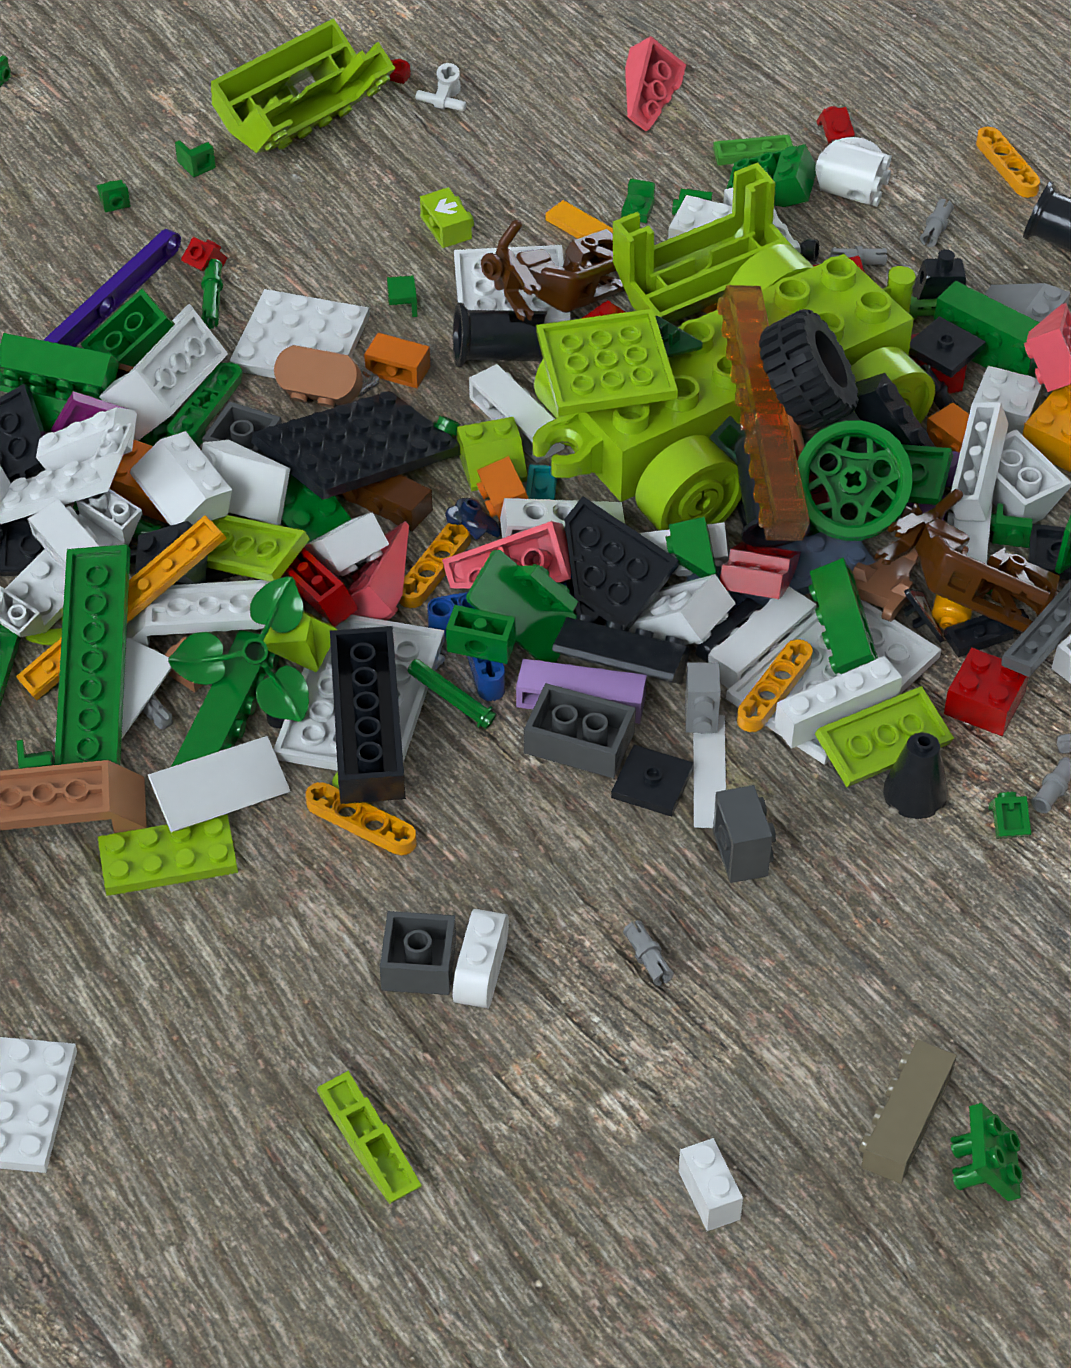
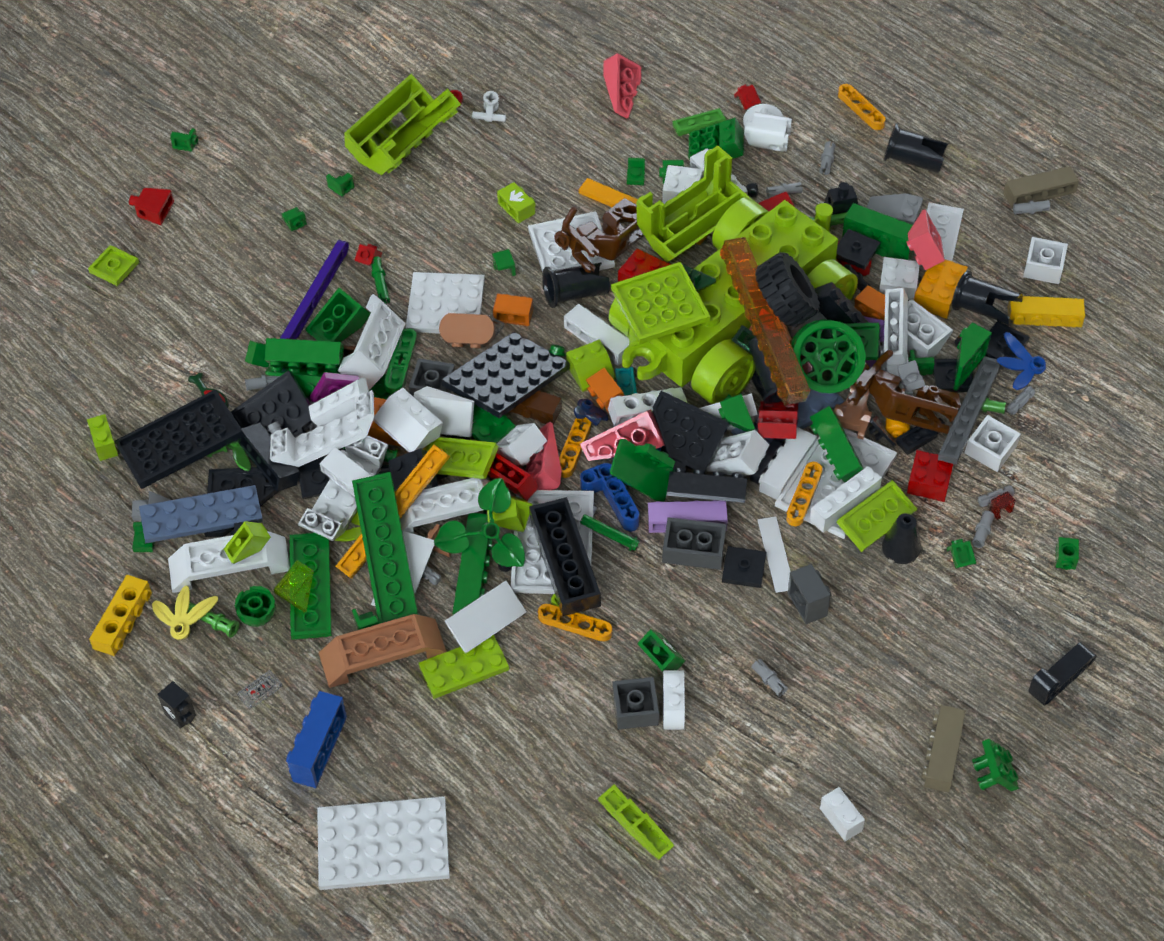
camera: 10 degrees left, 5 degrees up
(481, 634) = (621, 492): green brick -> none
(481, 880) = (661, 651): none -> green brick
(702, 697) = (763, 510): light grey brick -> none
(984, 533) = (910, 376): none -> light grey slope

